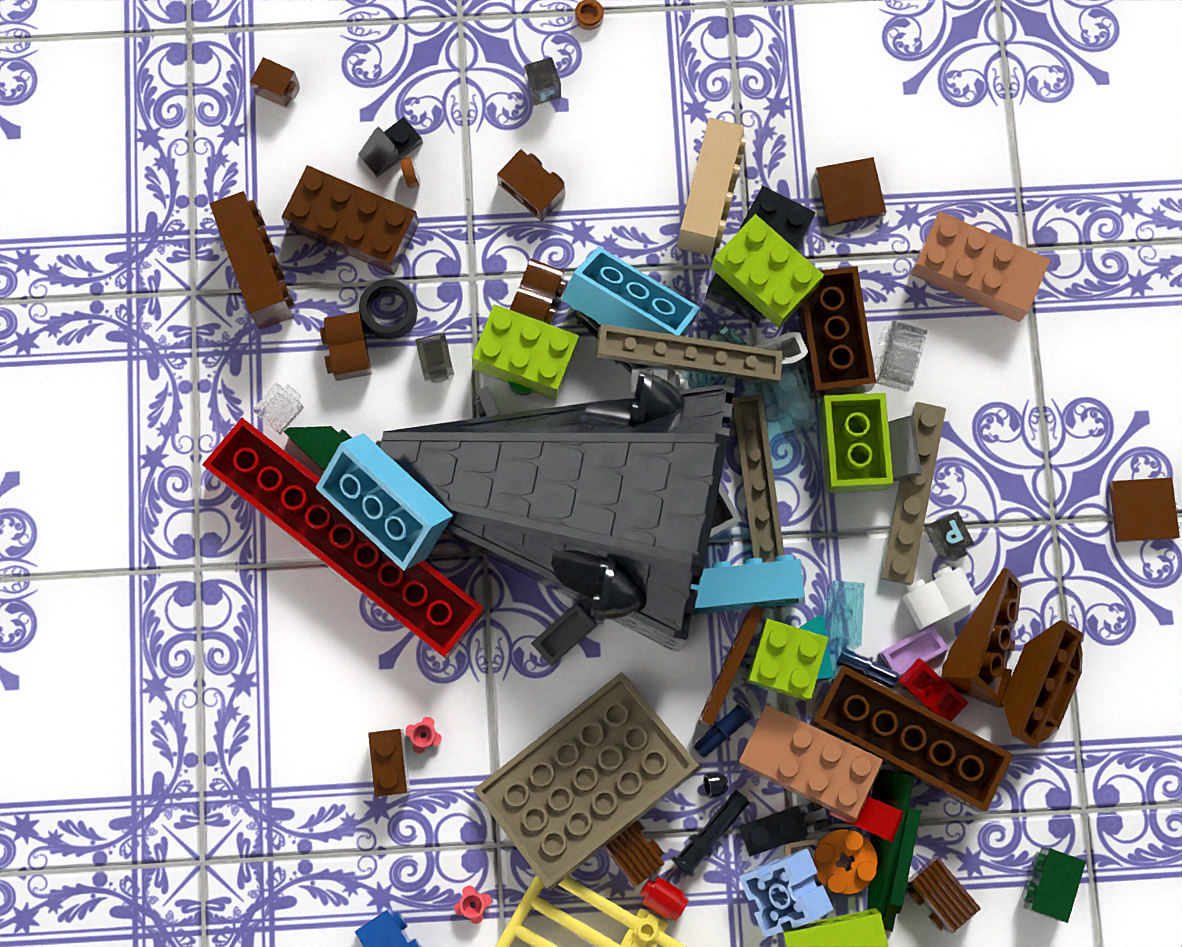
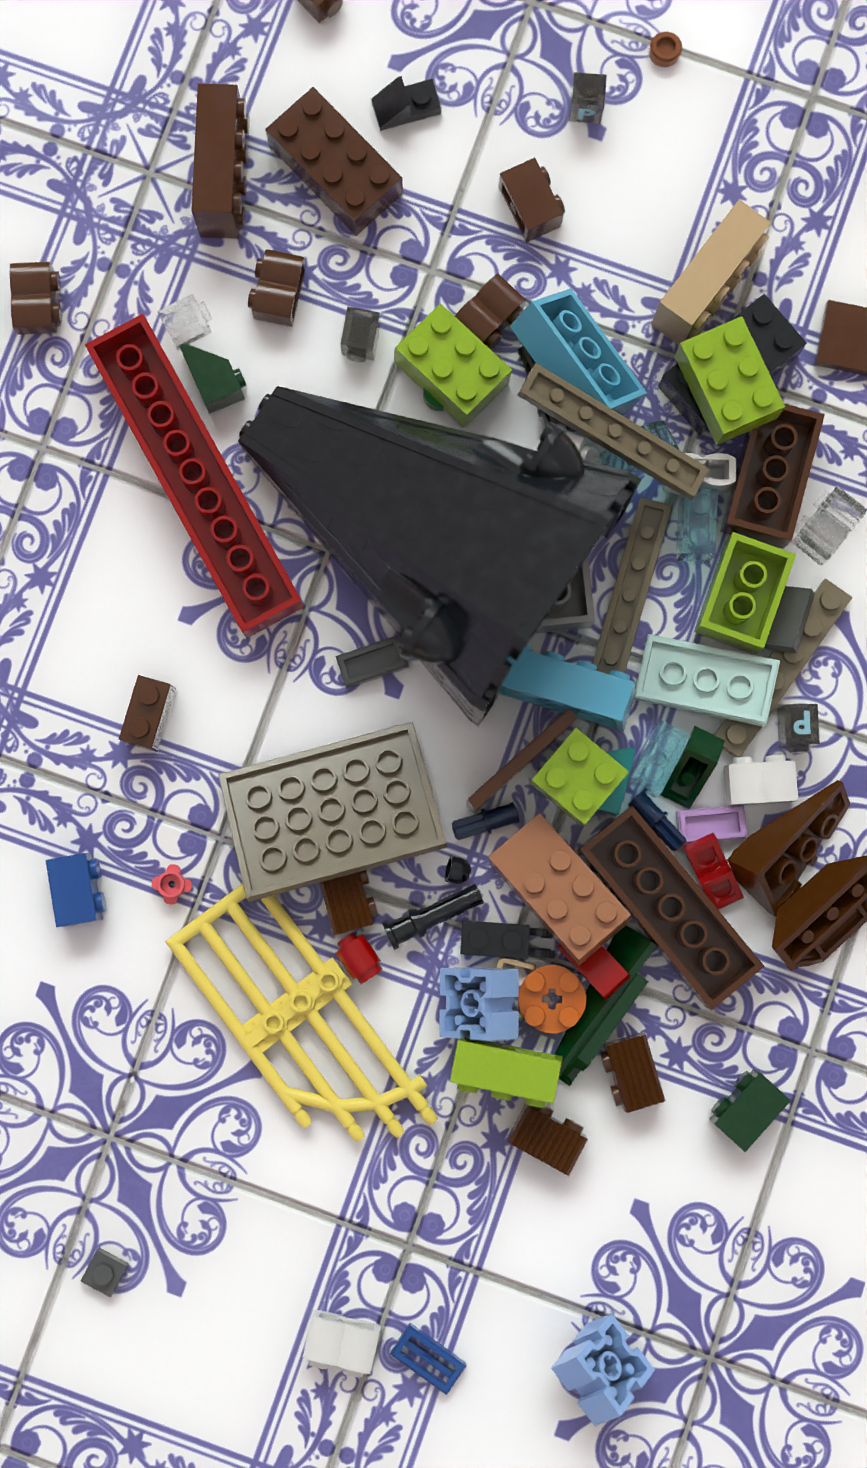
camera: 25 degrees right, 5 degrees up
(137, 441) = (34, 297): none -> reddish brown brick
(382, 287) = (331, 243): black tyre -> none
(383, 501) = (245, 452): medium azure brick -> none
(410, 172) = (414, 138): dark orange tile -> none
(415, 731) = (186, 694): coral plate -> none
(486, 404) = (391, 401): dark grey plate -> none
(856, 529) = (707, 680): none -> light aqua tile
(878, 608) = (693, 767): none -> dark green slope

